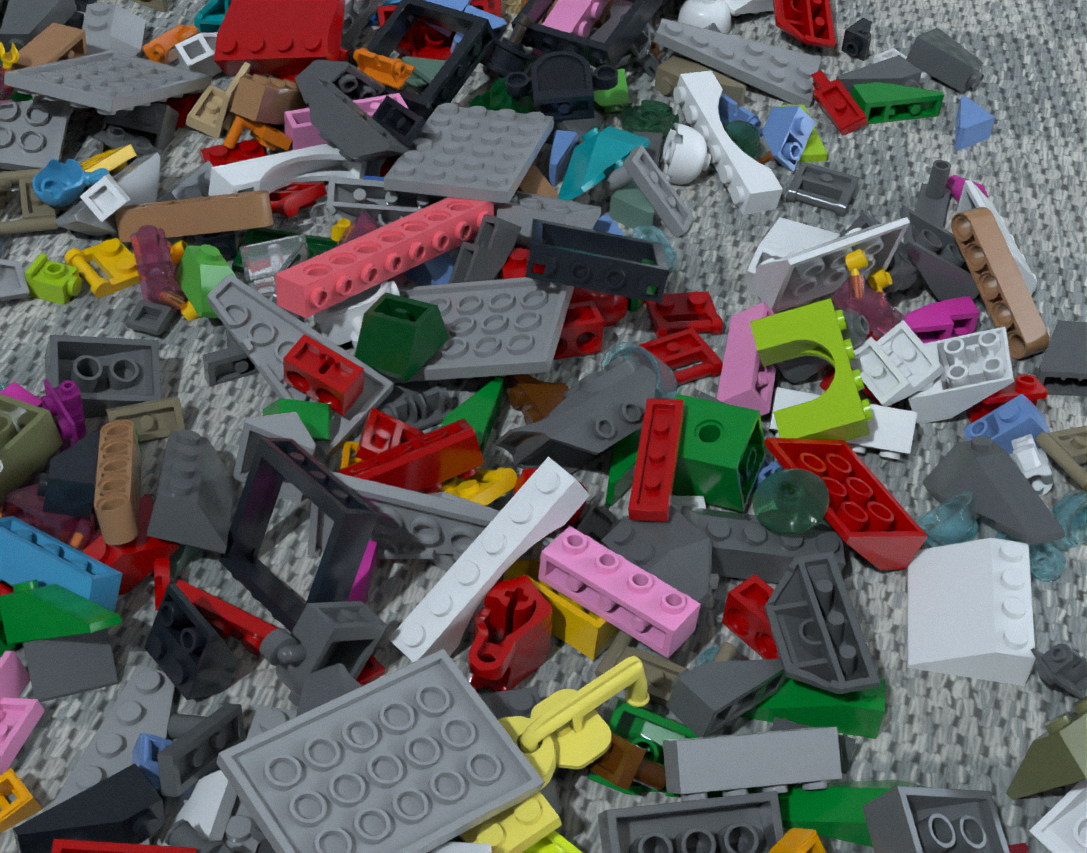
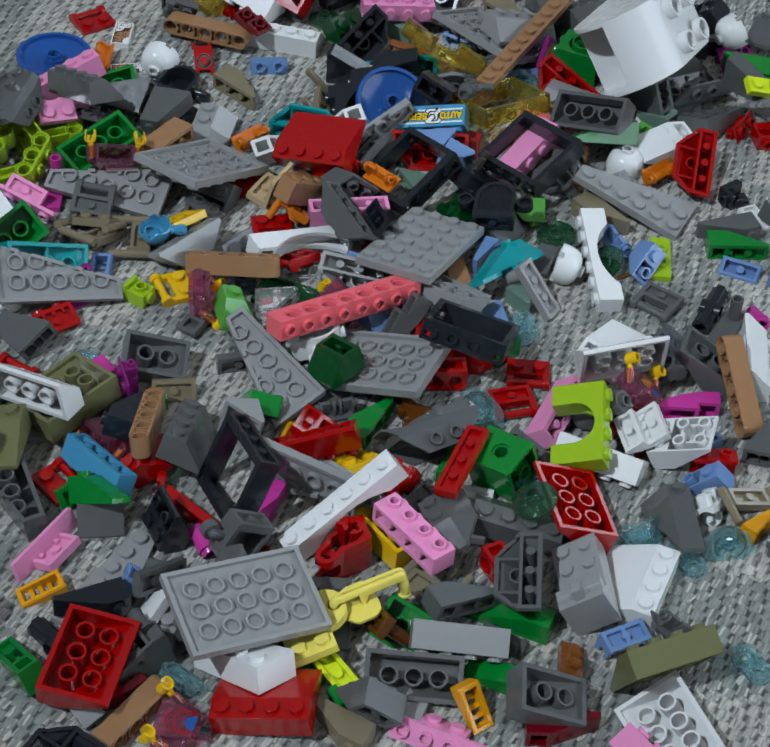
camera: 15 degrees right, 0 degrees up
(105, 197) = (180, 244): white panel -> none
(256, 668) = (201, 544): none -> dark pink cone
(323, 374) = (282, 378): red brick -> none
(359, 30) = (373, 146): none -> dark grey plate
(754, 22) = (657, 172): none -> orange hinge
(837, 104) = (693, 242): red hinge -> none
(877, 47) = (741, 200): none -> black hinge
(899, 186) = (710, 309): none -> black piece
(911, 625) = (585, 585): none -> light grey hinge
(912, 132) = (740, 270): none -> medium blue slope
(933, 758) = (570, 659): none -> dark orange plate
(999, 704) = (619, 637): none -> medium blue hinge

